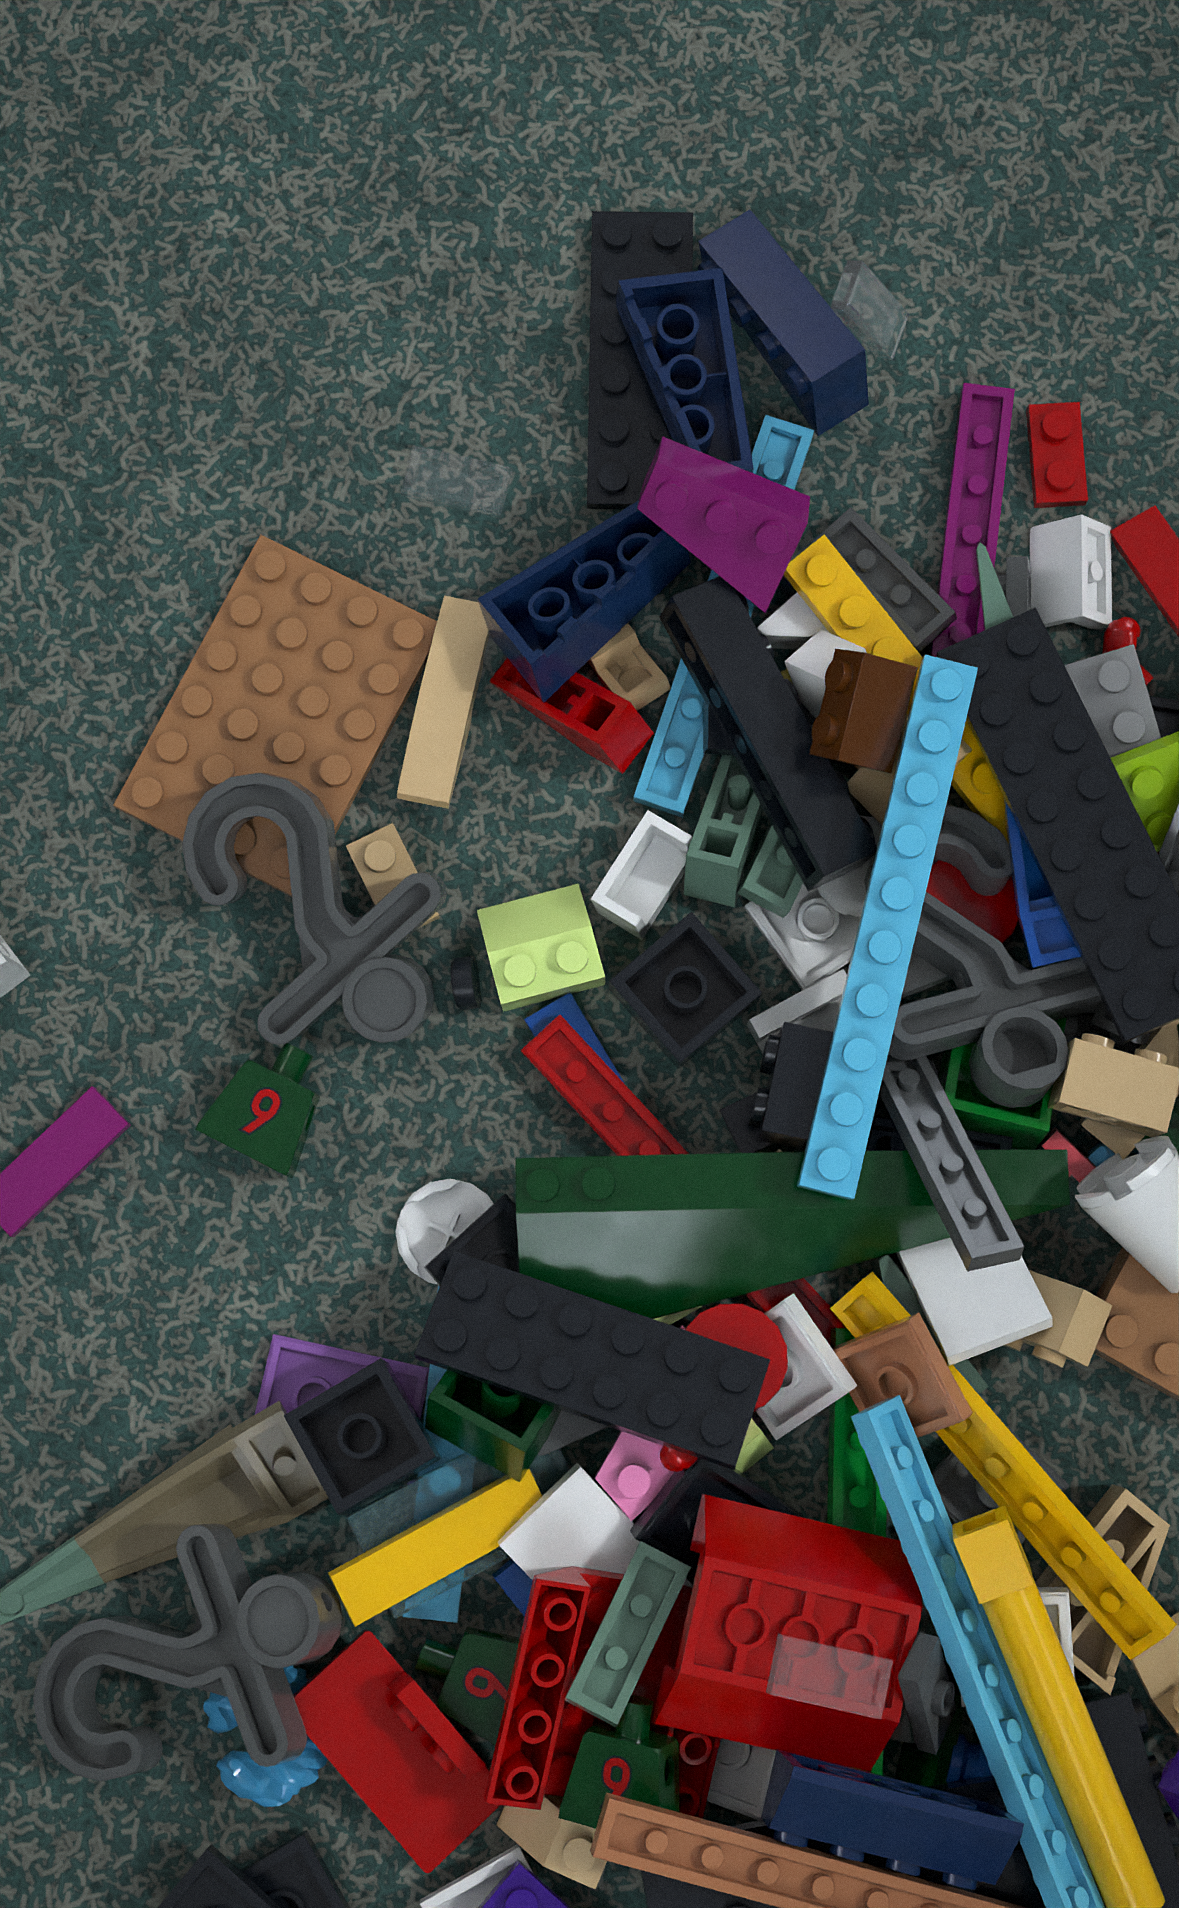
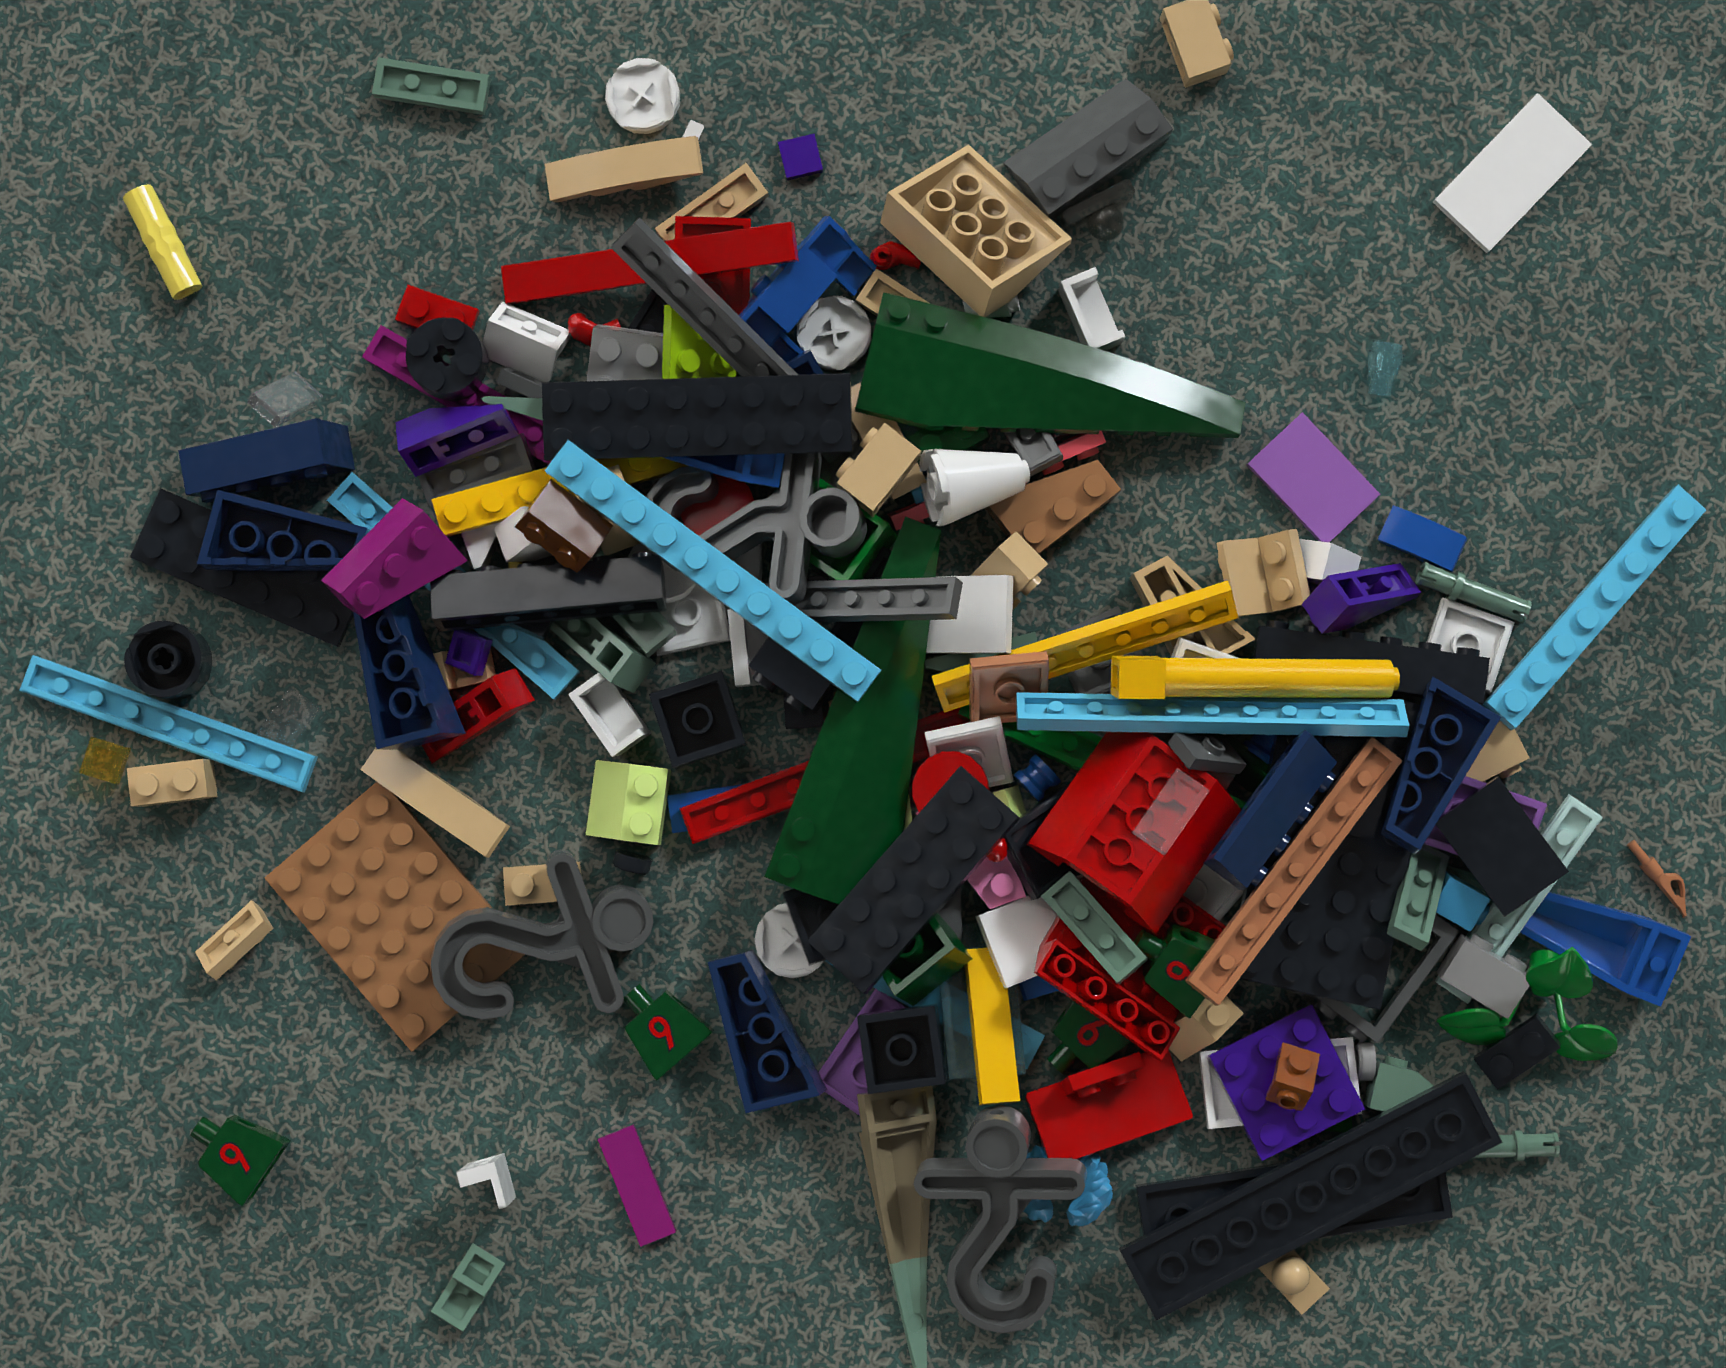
camera: 70 degrees left, 5 degrees up
(167, 530) = (234, 940): none -> tan plate
(304, 1243) = (762, 1041): none -> dark blue wedge
(328, 285) = (105, 760): none -> clear yellow plate
(333, 373) = (172, 782): none -> tan brick
(405, 345) = (168, 723): none -> medium azure tile
(507, 302) = (151, 648): none -> black brick
(649, 666) = (469, 651): none -> dark purple tile
(794, 1470) = (1037, 778): none -> blue wheel
(916, 529) = (450, 434): none -> dark purple slope
(998, 89) = (162, 241): none -> light yellow axle
(1017, 455) = (426, 353): none -> black brick

